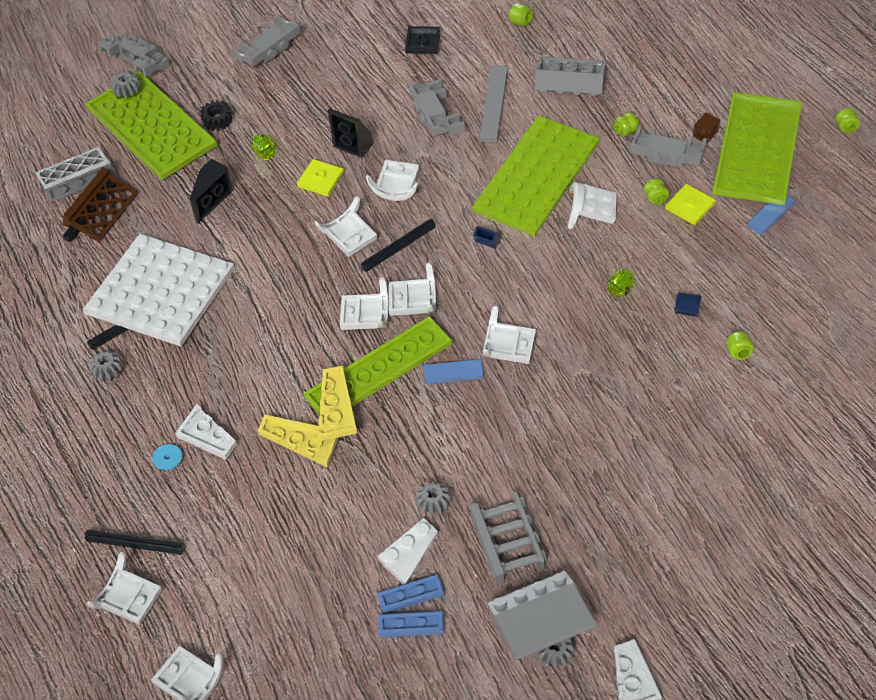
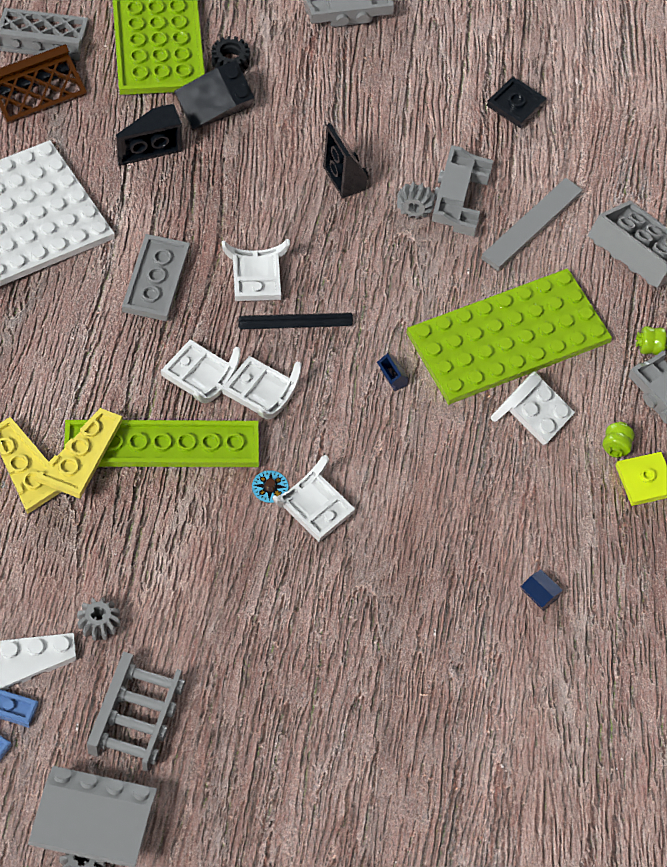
camera: 25 degrees right, 5 degrees up
(229, 141) = (215, 95): none -> black slope
(263, 146) = (248, 121): clear neon green head -> none
(285, 273) = (156, 277): none -> light grey plate
(320, 177) = (279, 193): neon yellow plate -> none
(395, 181) = (351, 246): white piece -> none
(413, 129) = (415, 200): none -> light grey gear
(453, 371) = (234, 497): medium blue tile -> none
(468, 350) = (269, 484): none -> piece
(520, 14) = (647, 138): lime head -> none
(620, 283) = (489, 517): clear neon green head -> none
(739, 345) = (555, 674): lime head -> none

